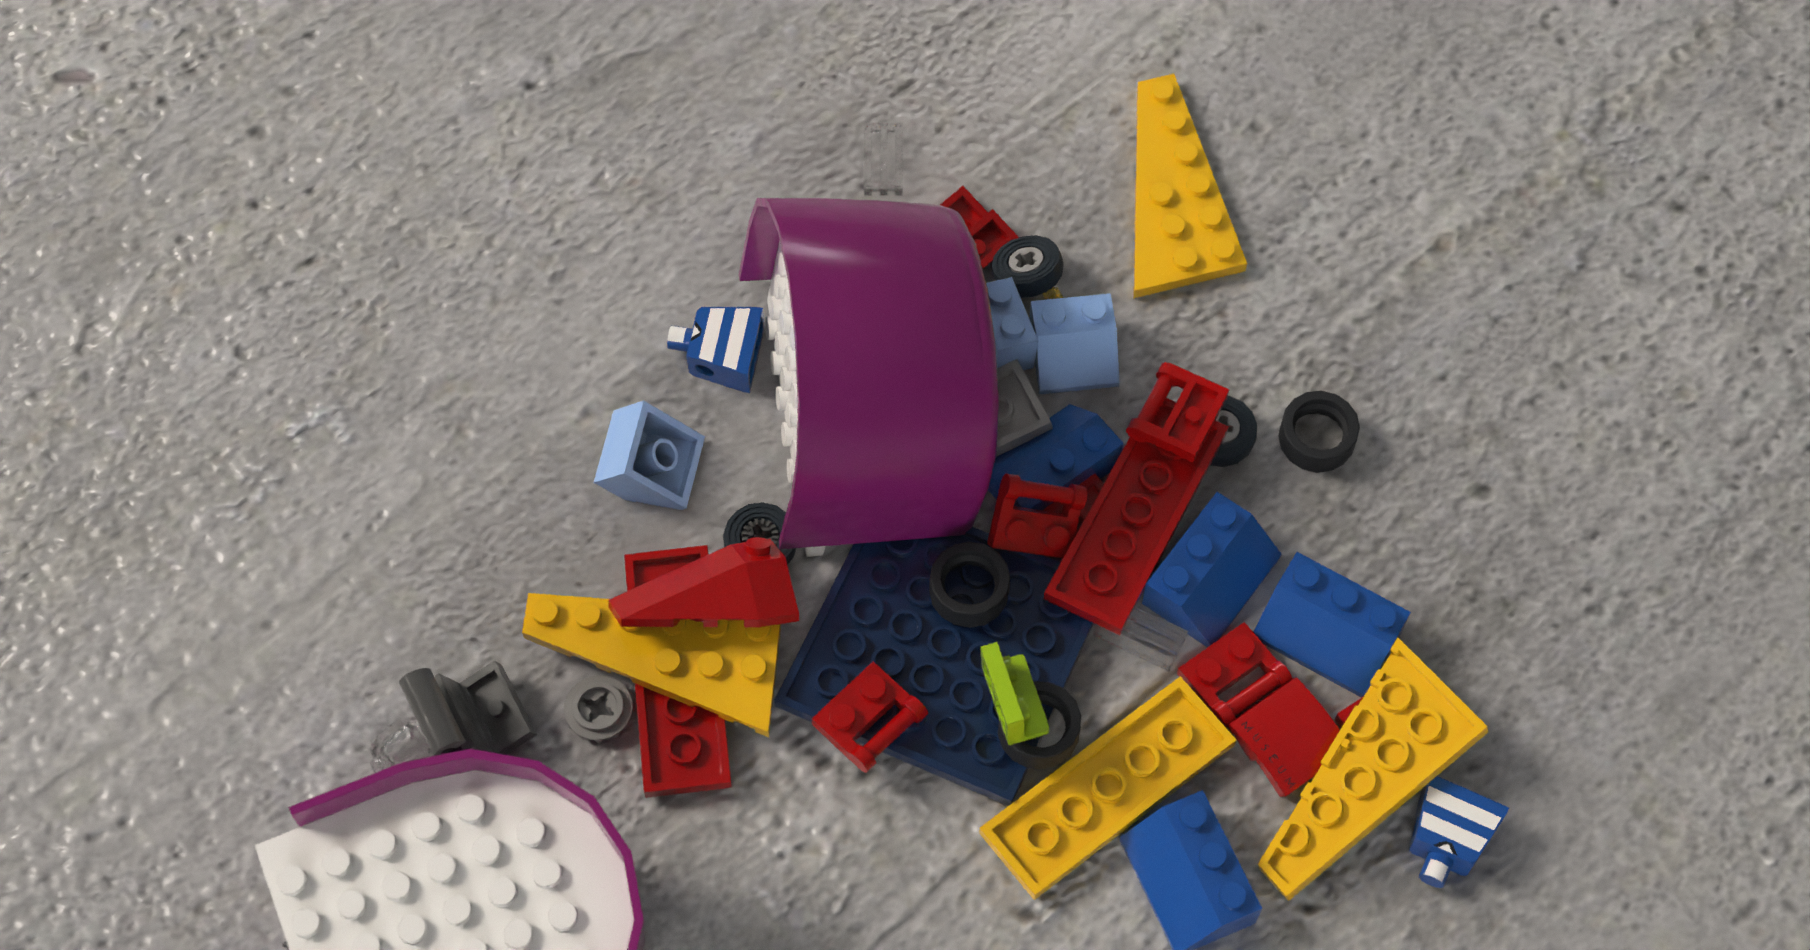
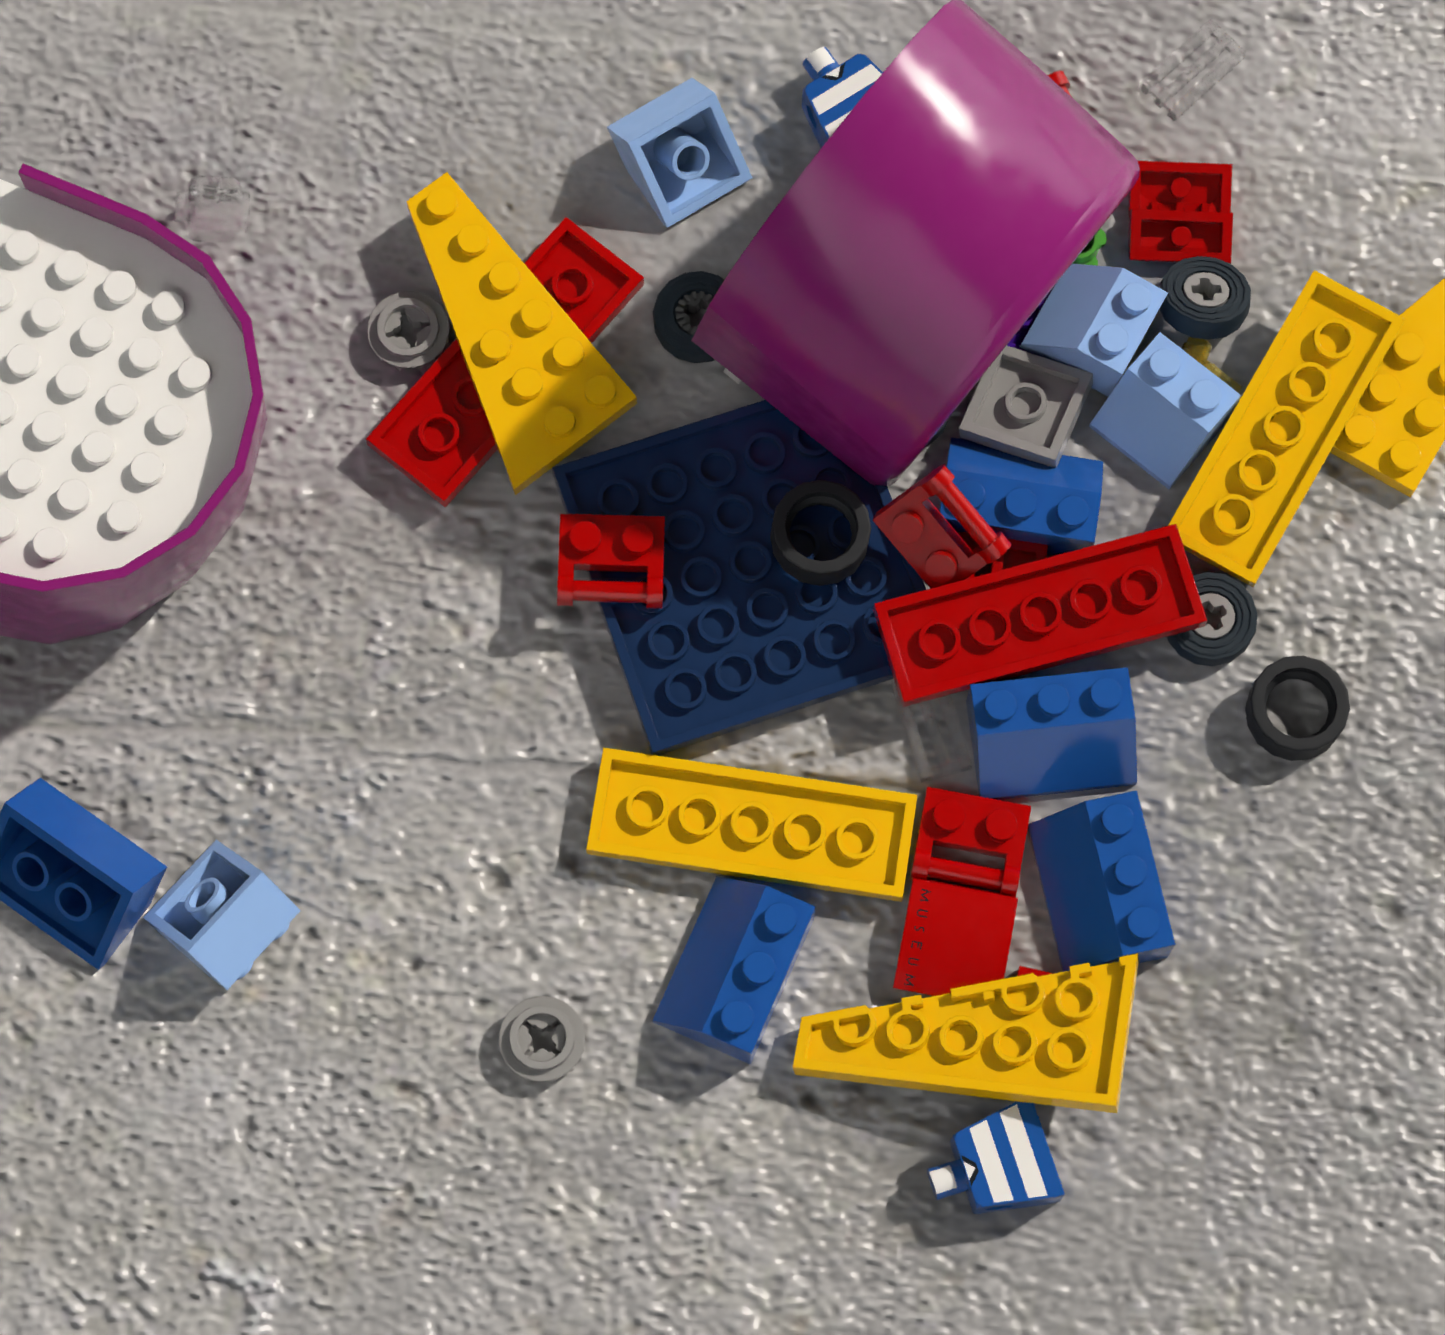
camera: 45 degrees right, 10 degrees up
(469, 714) = (286, 232): dark grey piece -> none
(733, 583) = (610, 330): red wedge -> none
(1013, 695) = (733, 661): lime bracket -> none
(1055, 754) = (744, 672): black tyre -> none
(1145, 282) = (1284, 427): none -> yellow plate
(1190, 417) = (1177, 576): red plate -> none

